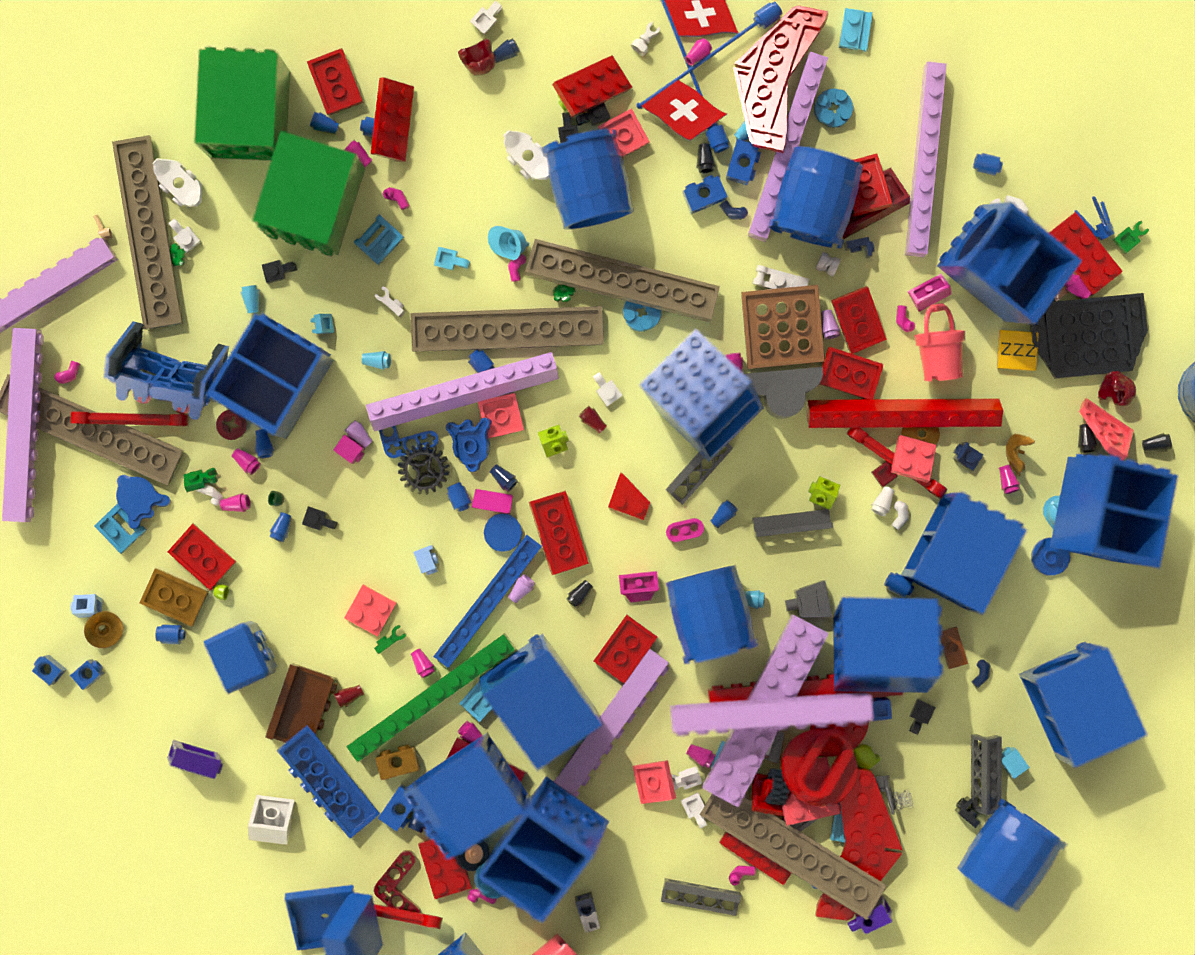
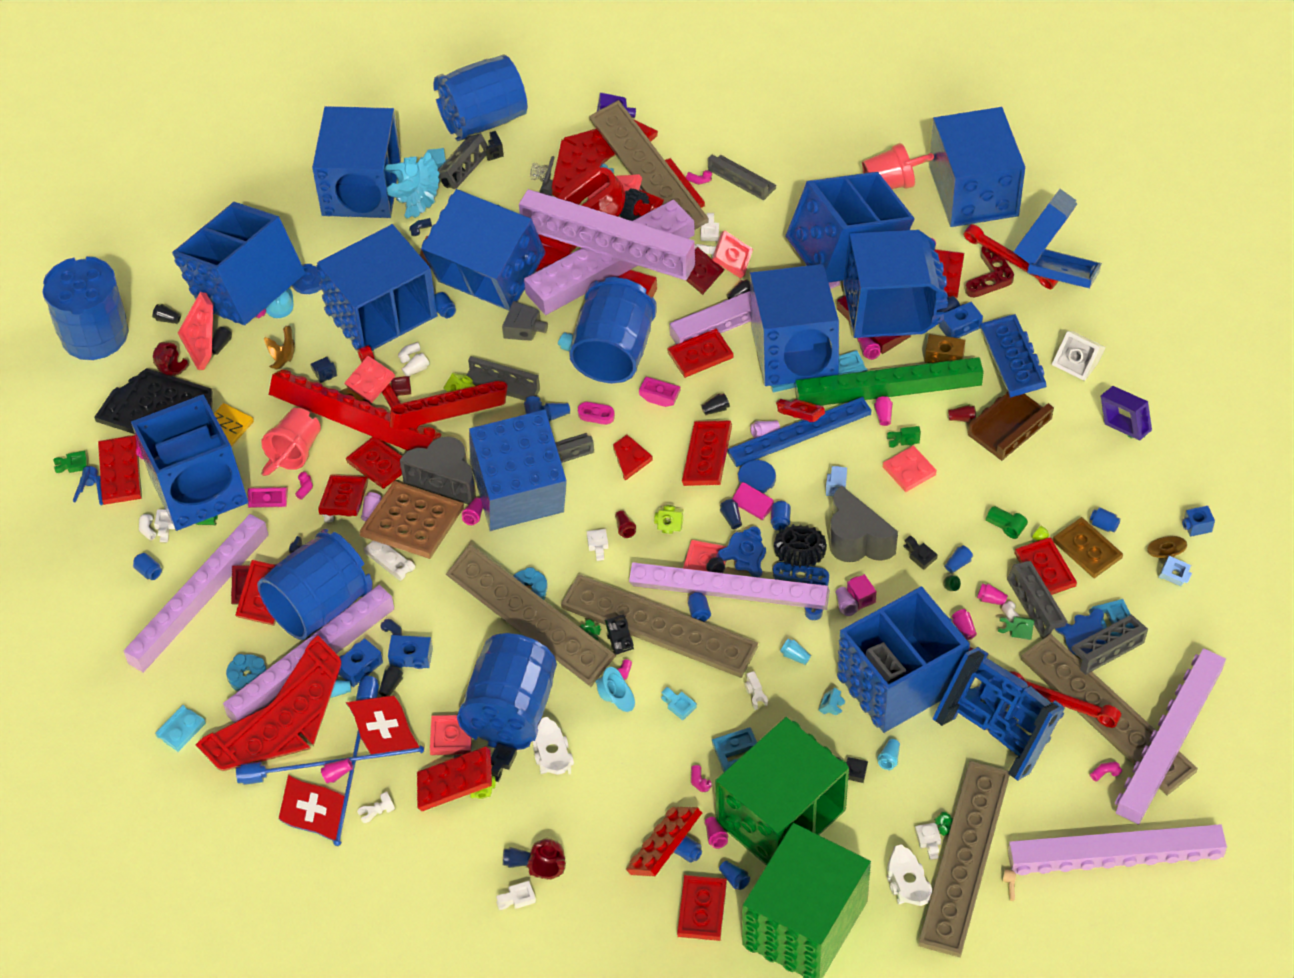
camera: 155 degrees left, 35 degrees down
(56, 669) = (1234, 538): blue brick -> none
(106, 491) = (1115, 645): none -> dark grey fence
(193, 515) = (1037, 597): none -> dark grey fence
(241, 656) = (1044, 466): blue plate -> none
(251, 589) = (1011, 524): none -> green piece
(276, 347) = (885, 663): none -> dark grey torso
(380, 506) = (859, 531): none -> dark grey brick
(485, 406) = (716, 565): none -> black plate
(495, 621) = (800, 409): none -> red hinge
(532, 297) = (619, 634): none -> black hips
(625, 743) = (741, 288): none -> black cone
(676, 749) = (704, 272): none -> dark red plate
(744, 504) = (532, 404): none -> blue cone
(817, 467) = (448, 405): none -> red beam
(1008, 480) = (303, 337): dark pink cone -> none
(1012, 715) = (416, 183): none -> medium azure piece

